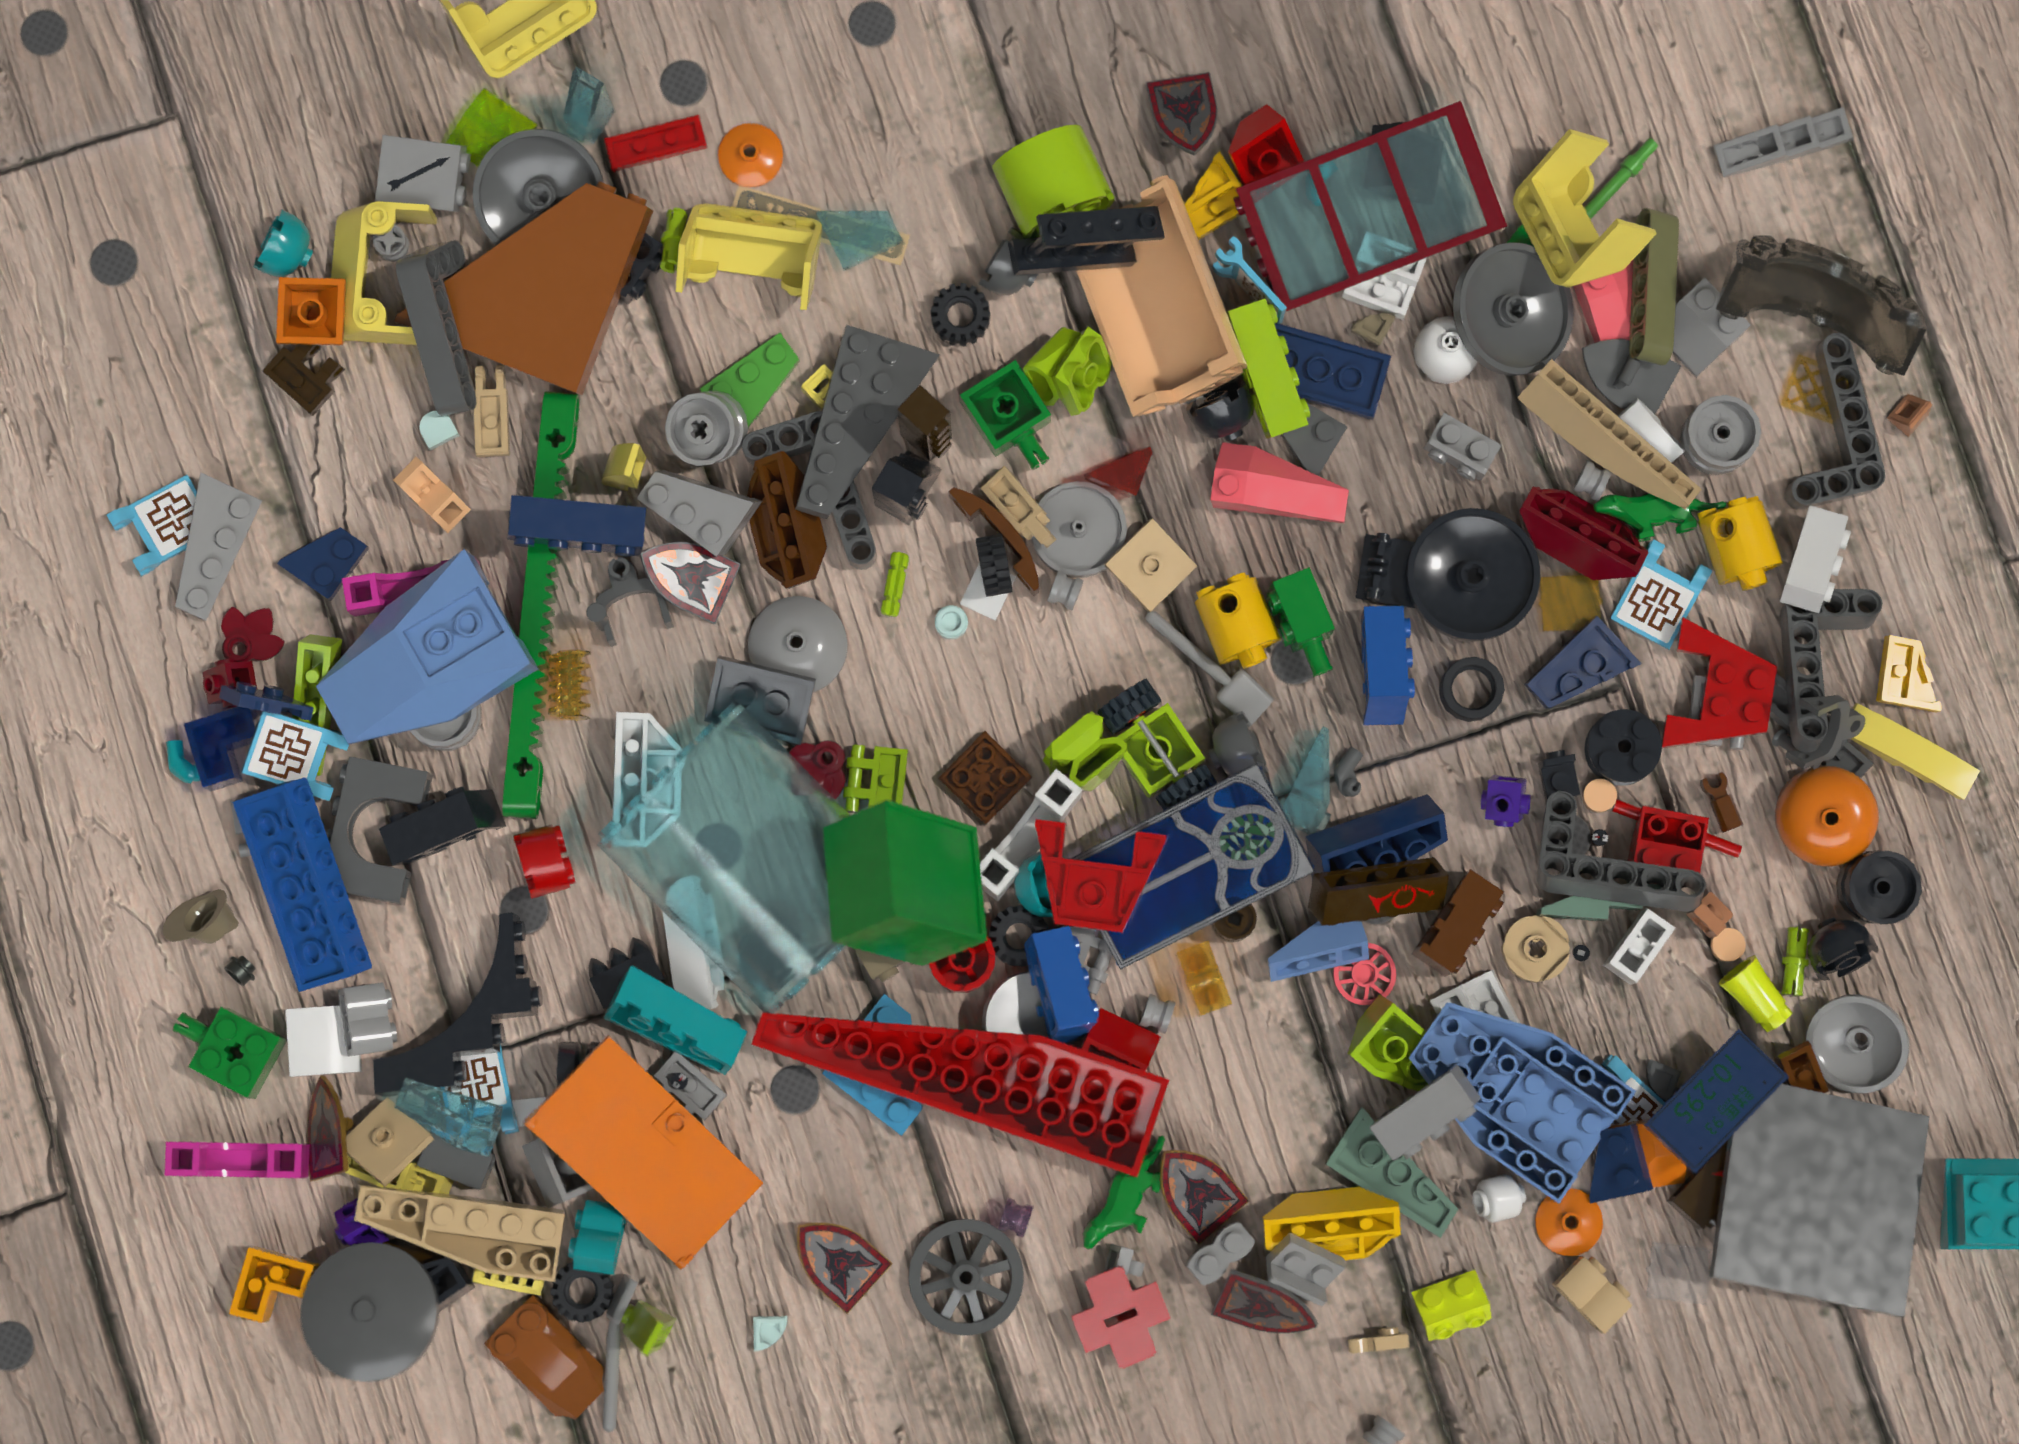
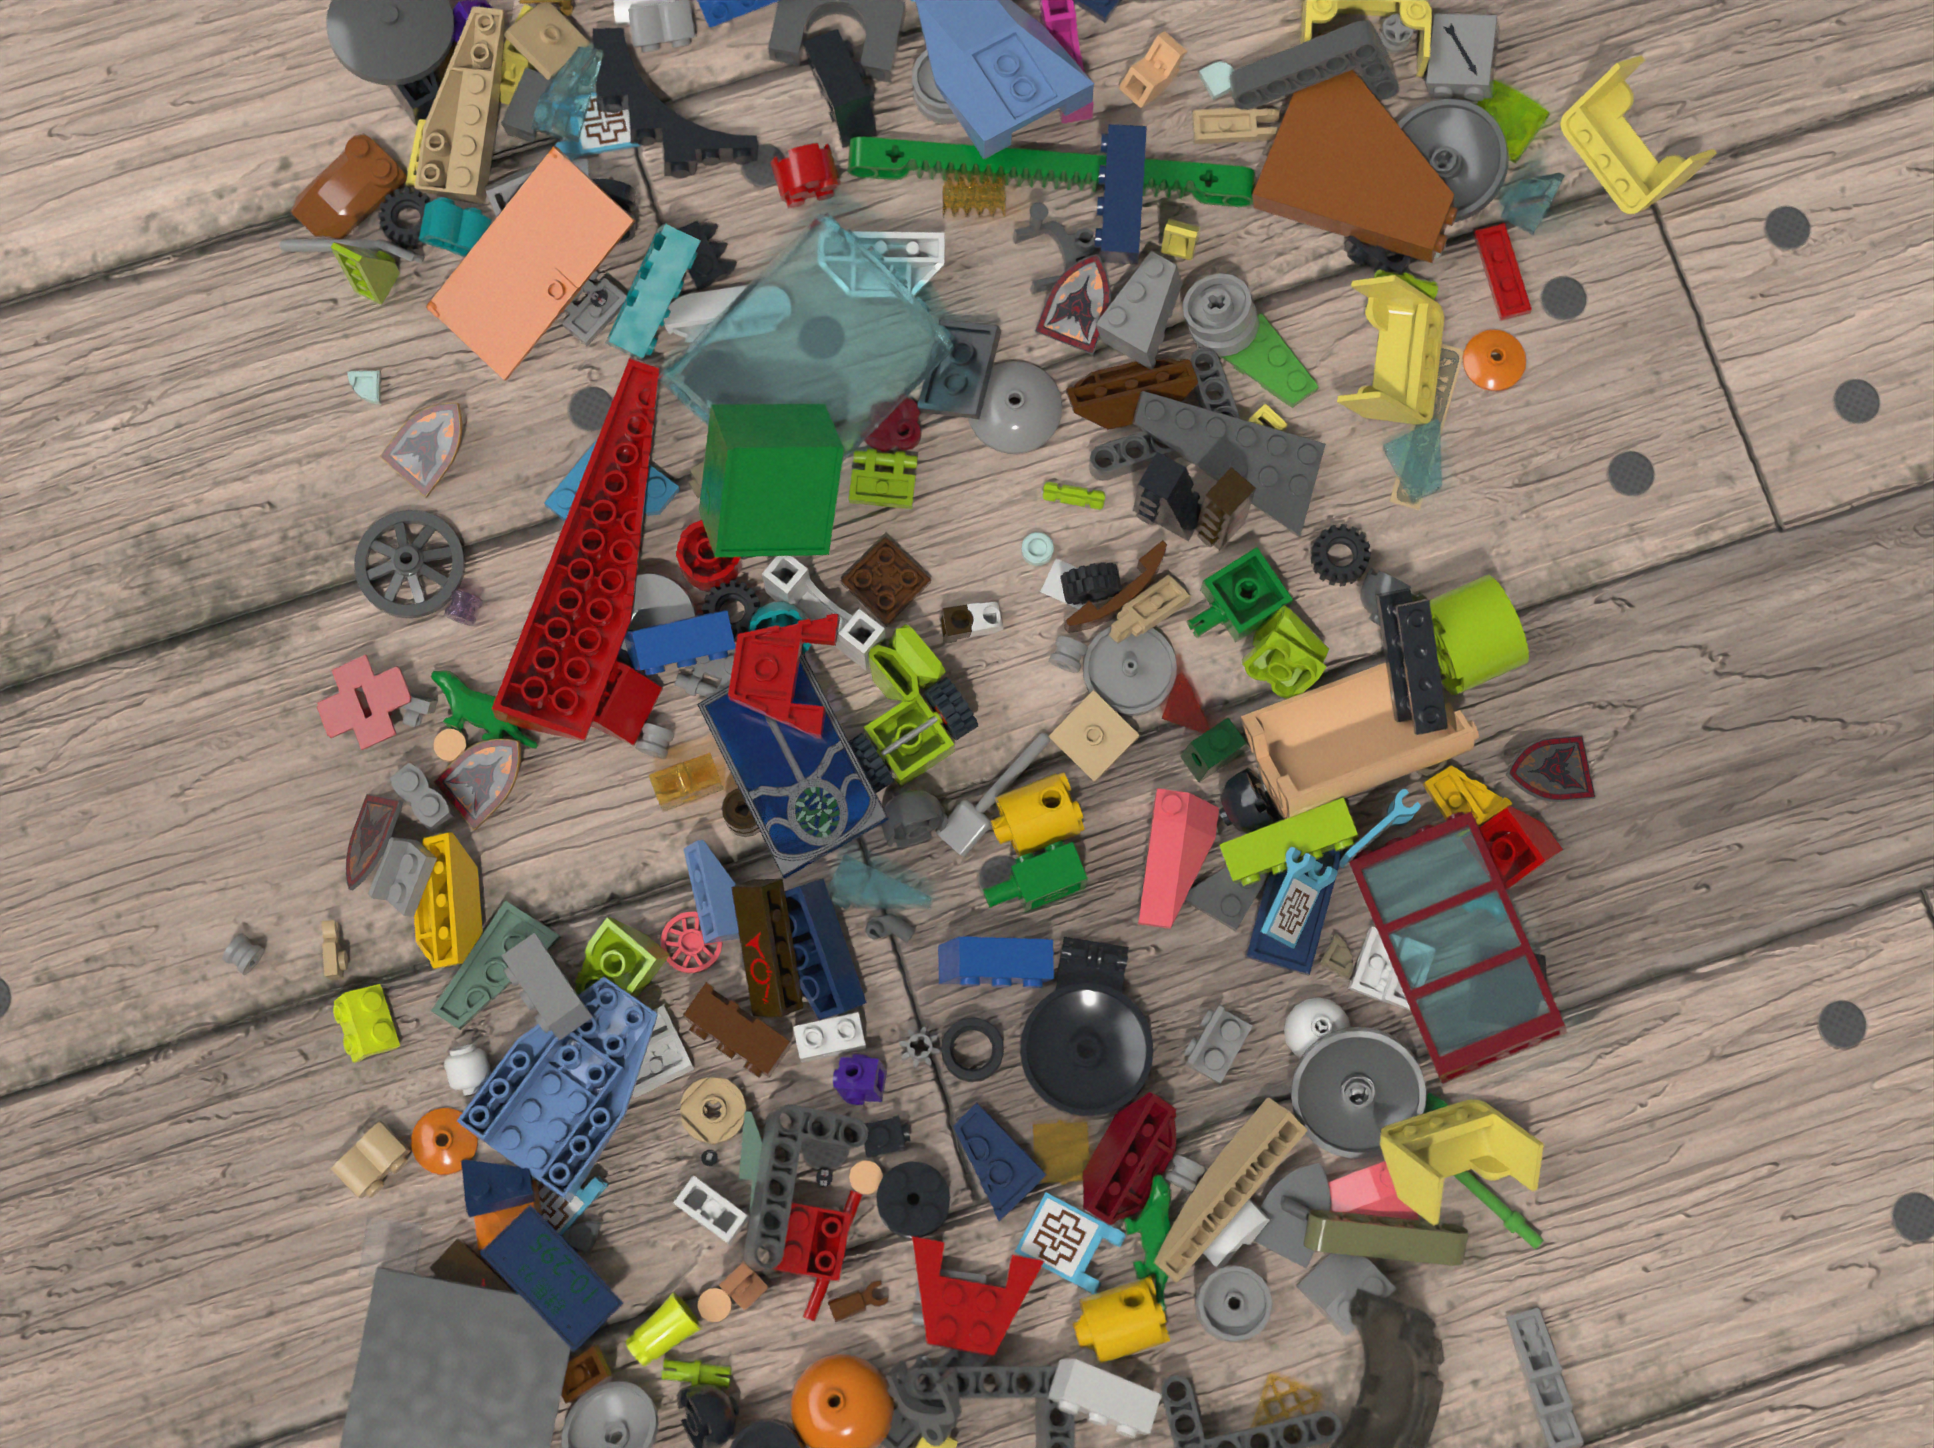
camera: 90 degrees right, 5 degrees down
(1030, 690) = (970, 621): none -> leg
(1161, 1227) = (449, 745): none -> light nougat tile
(1167, 443) = (1214, 749): none -> dark green torso
(1323, 362) = (1296, 897): none -> flag
(1464, 831) = (829, 1037): none -> white brick
(1479, 736) = (914, 1038): none -> light grey gear

